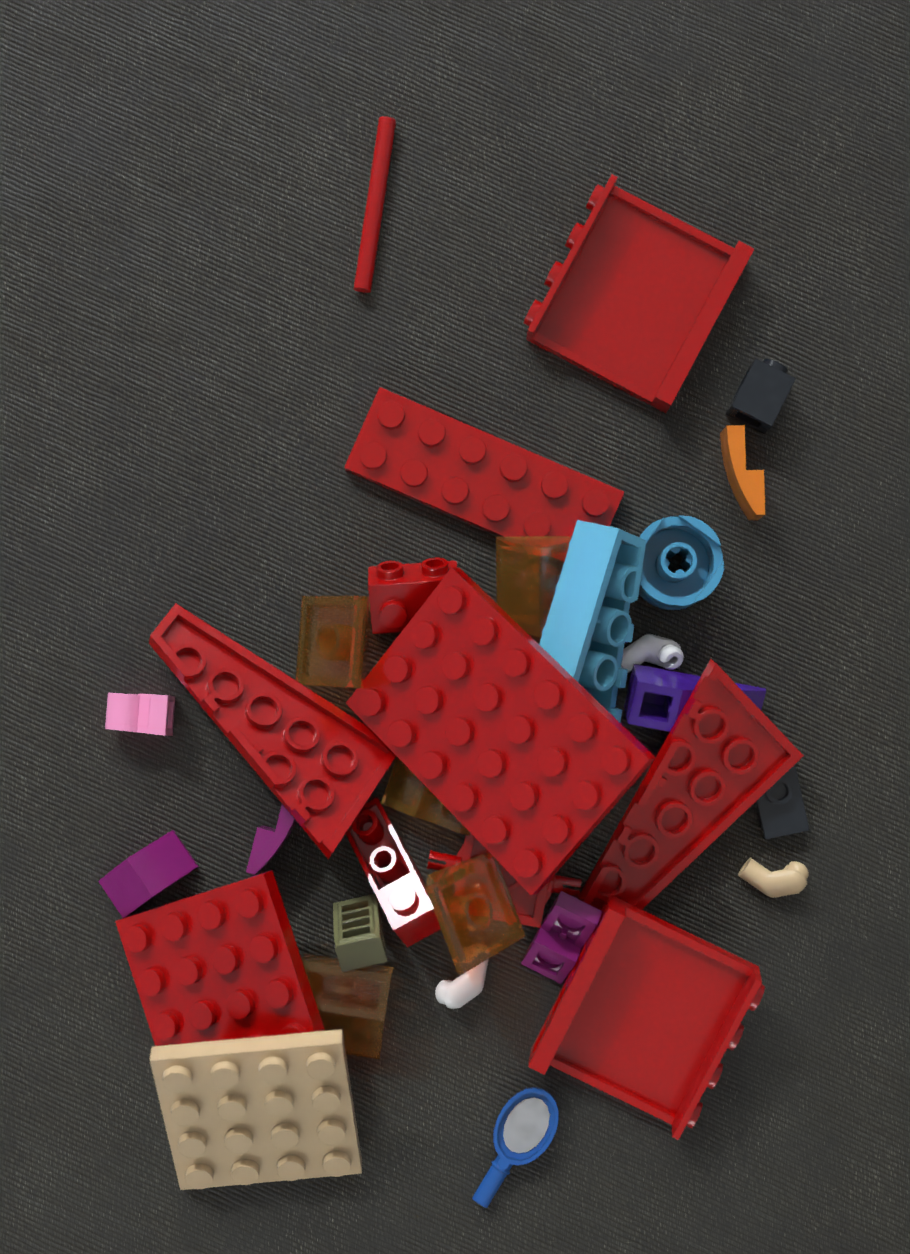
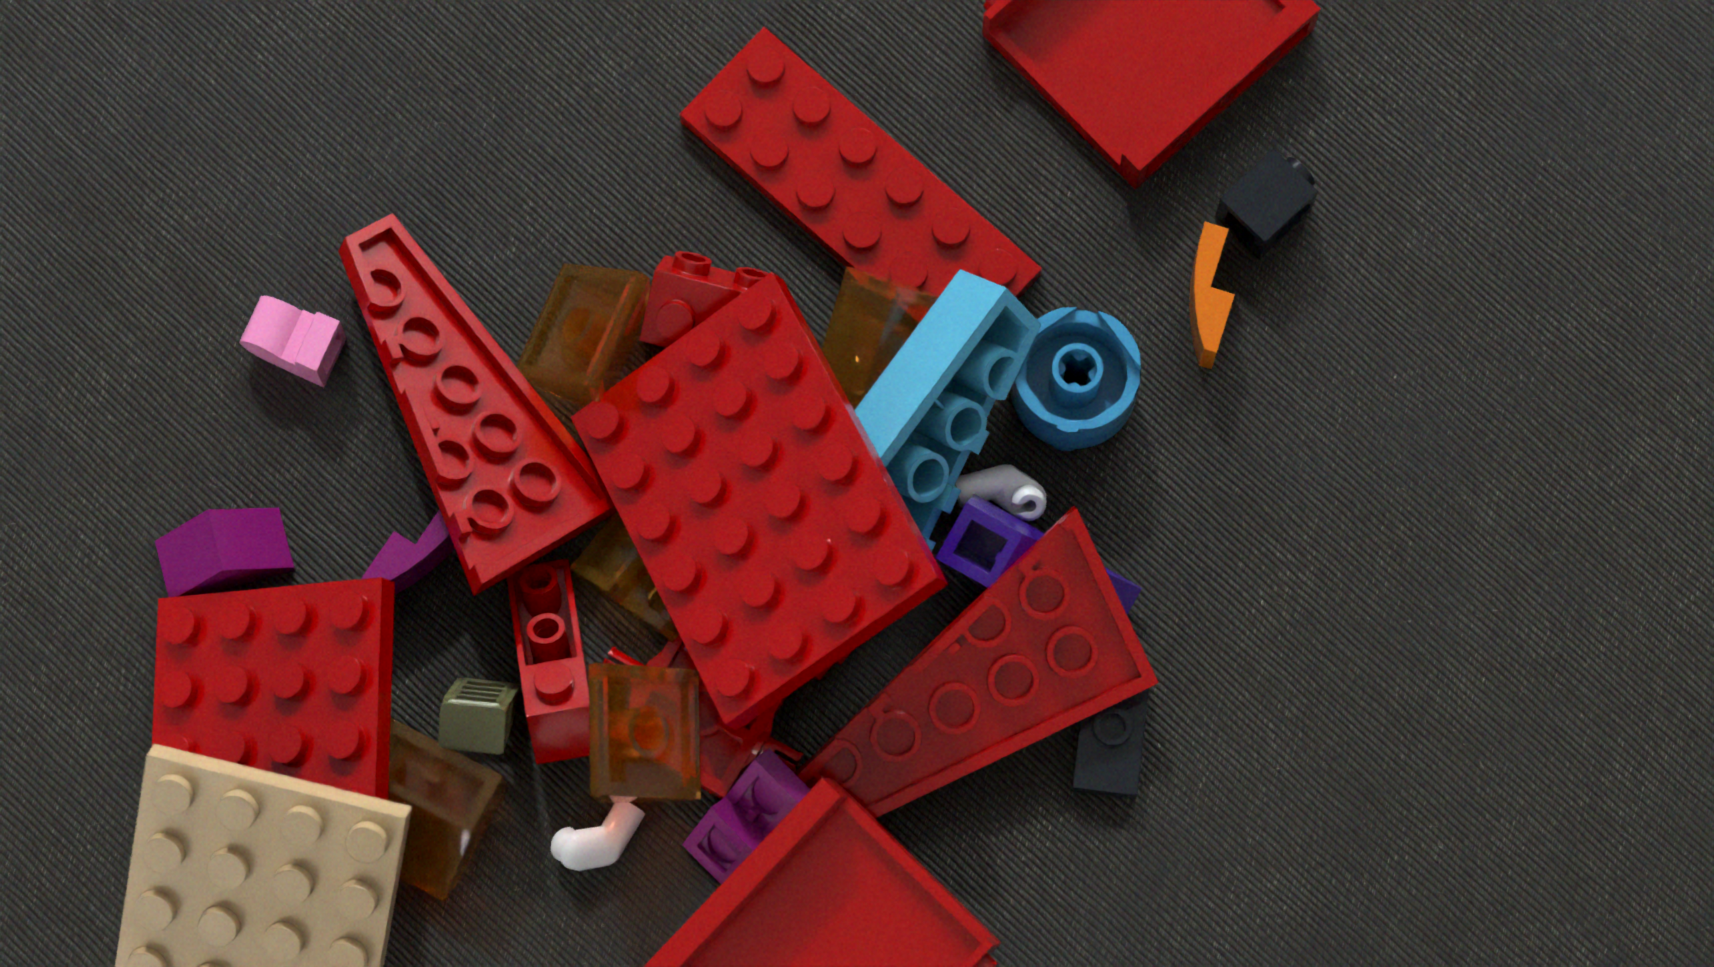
camera: 15 degrees right, 10 degrees down
(777, 883) = (1068, 852): tan arm -> none

